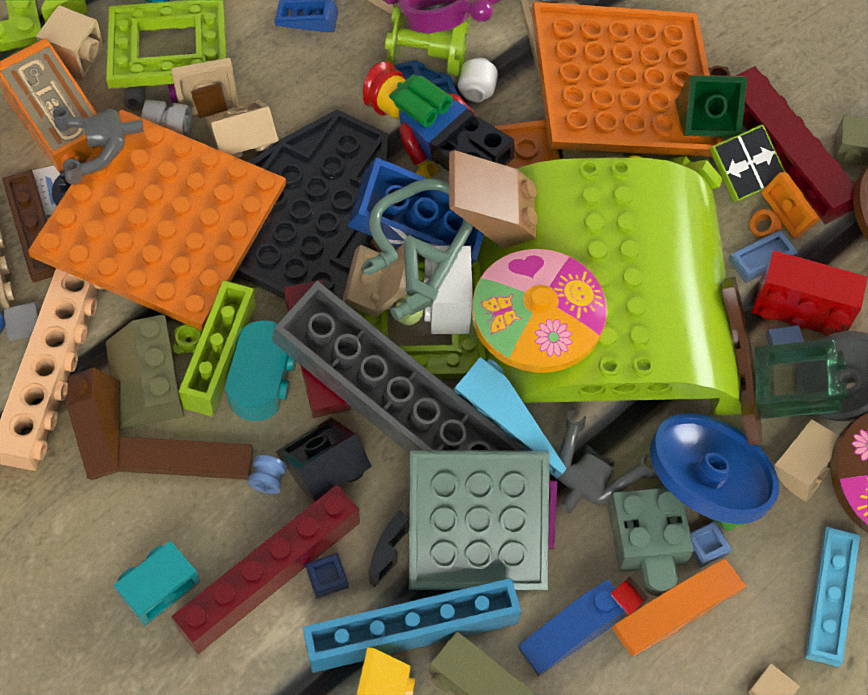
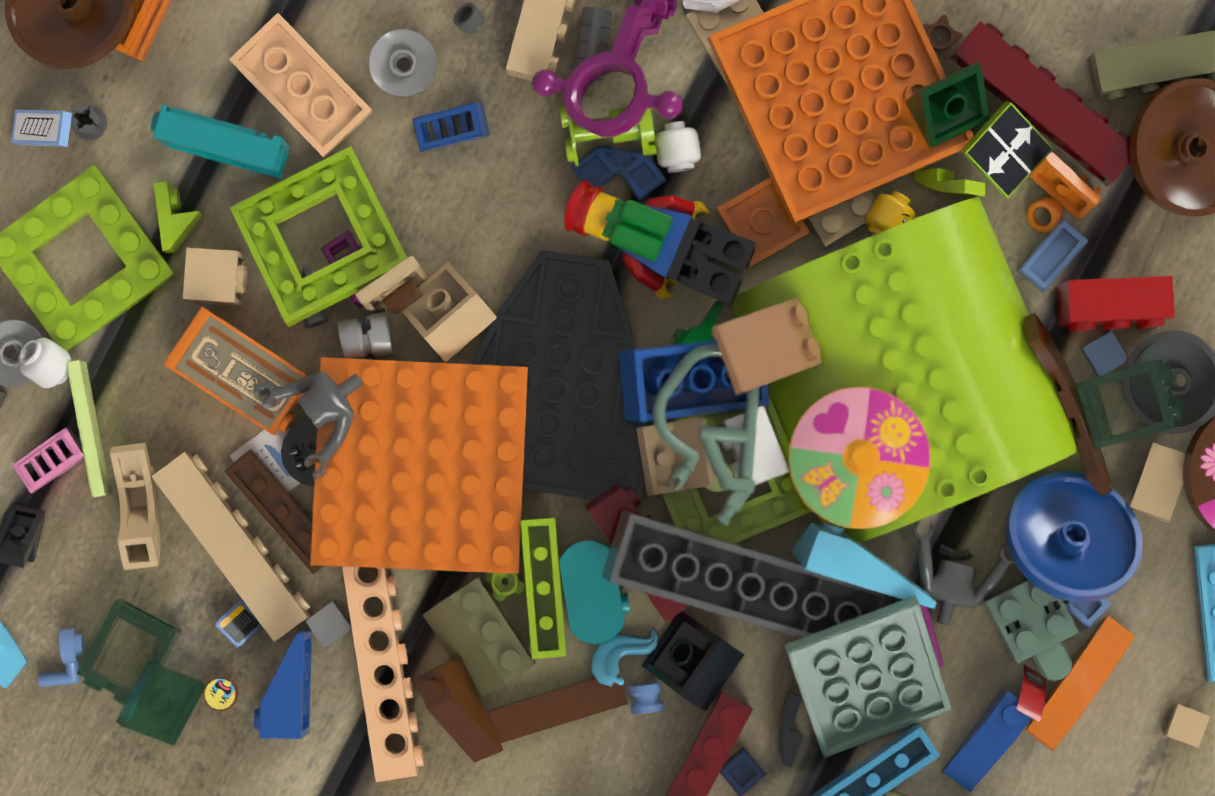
camera: 15 degrees left, 25 degrees up
(249, 429) = (608, 654): none -> medium azure piece

